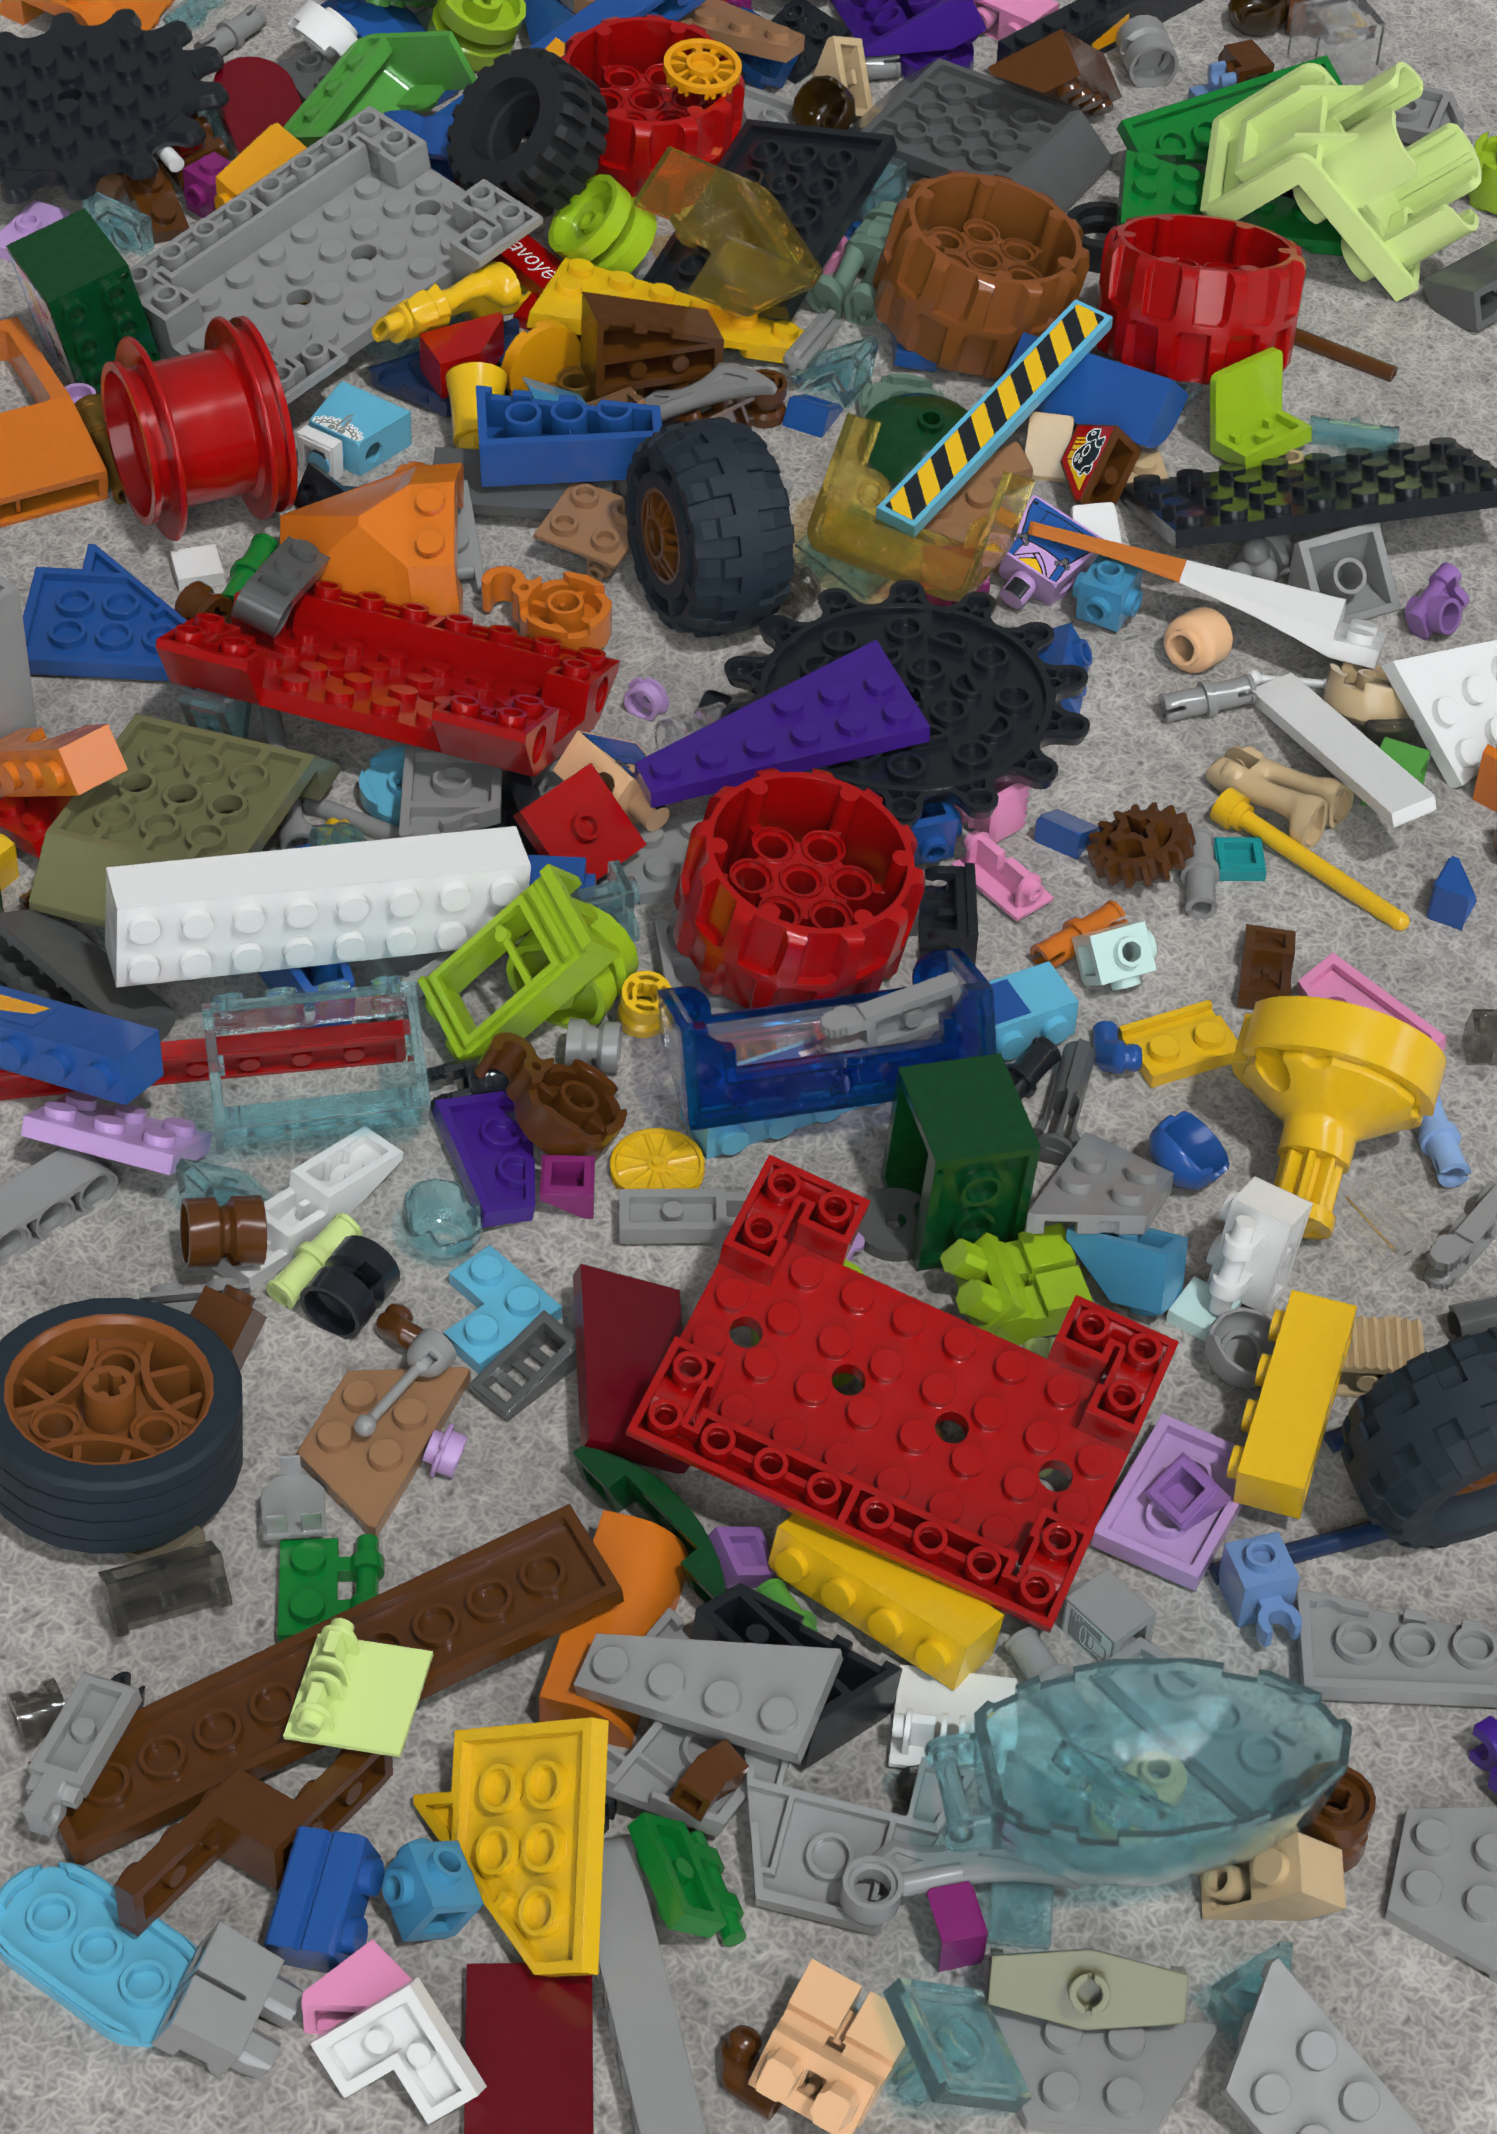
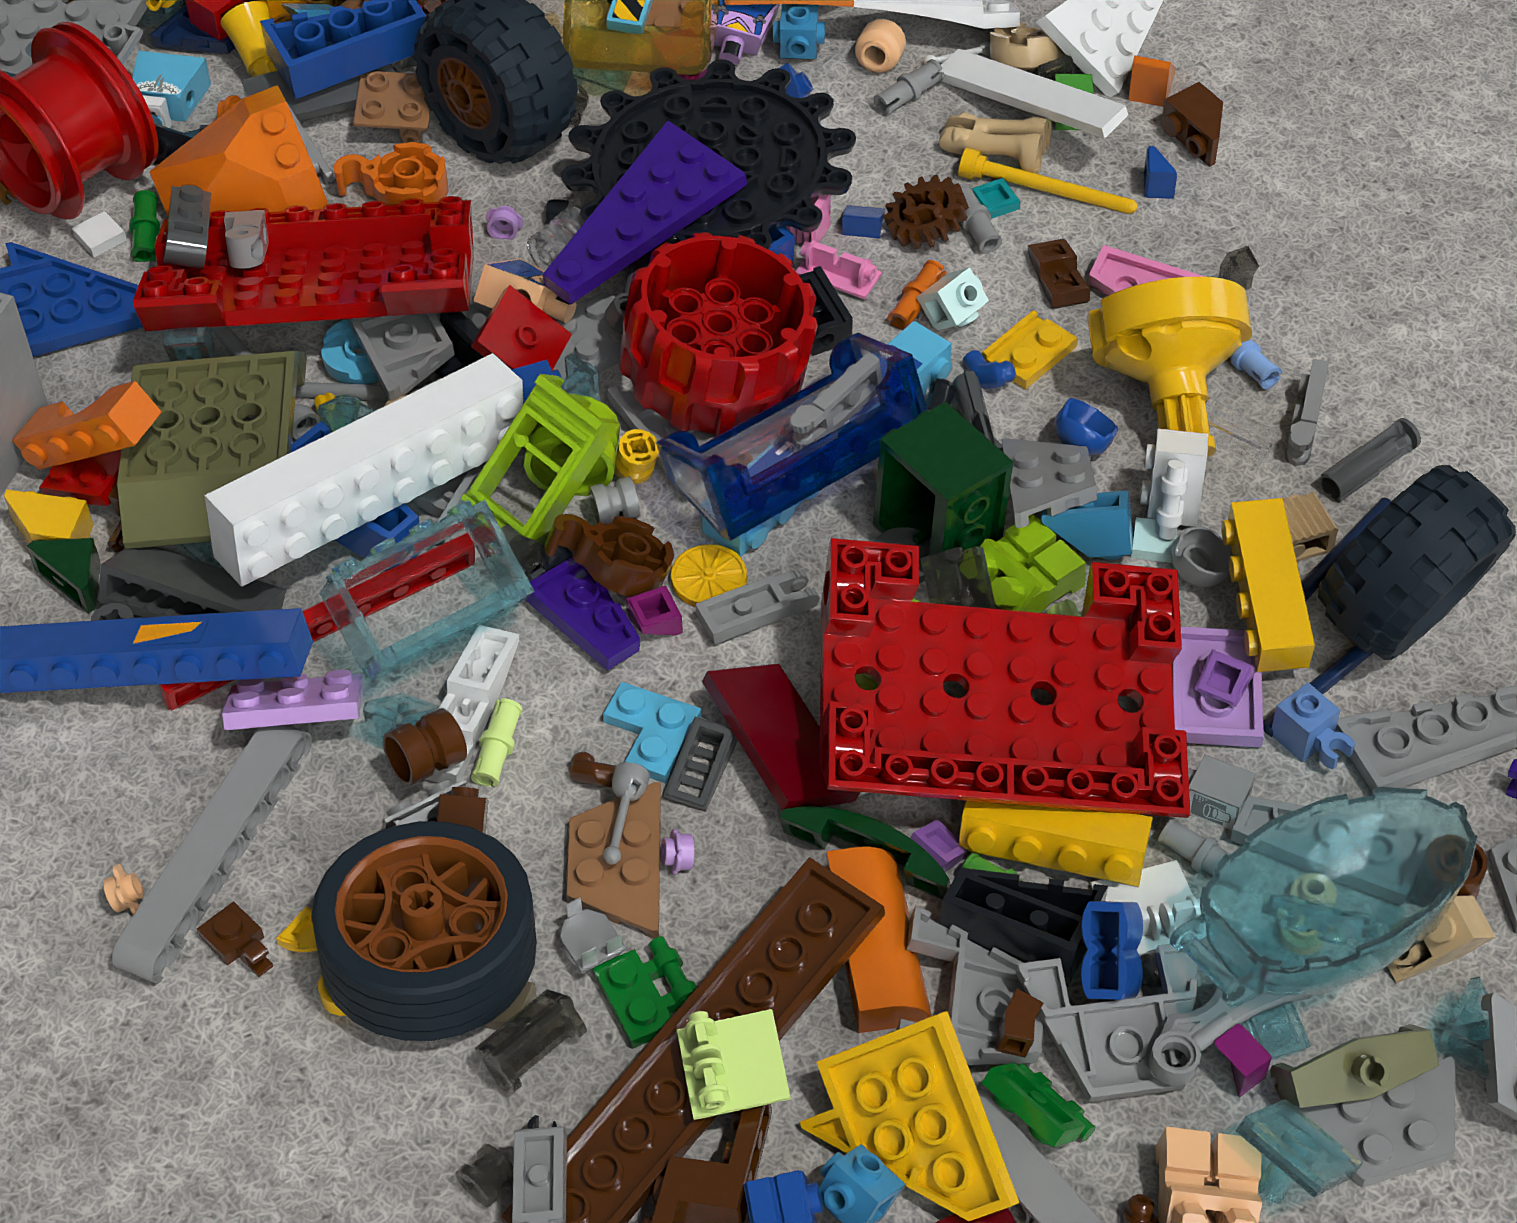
camera: 20 degrees left, 5 degrees up
(200, 598) = (126, 264): reddish brown wheel -> none
(340, 619) = (246, 238): none -> light grey leg
(350, 1286) = (538, 752): black wheel -> none
(440, 1209) = (570, 668): clear light blue hair -> none
(444, 1057) = (524, 548): none -> clear smoke piece
(721, 1689) = (997, 952): light grey wing -> none
(863, 1744) = (1112, 961): none -> blue brick
(927, 1265) = (958, 578): none -> clear smoke hinge

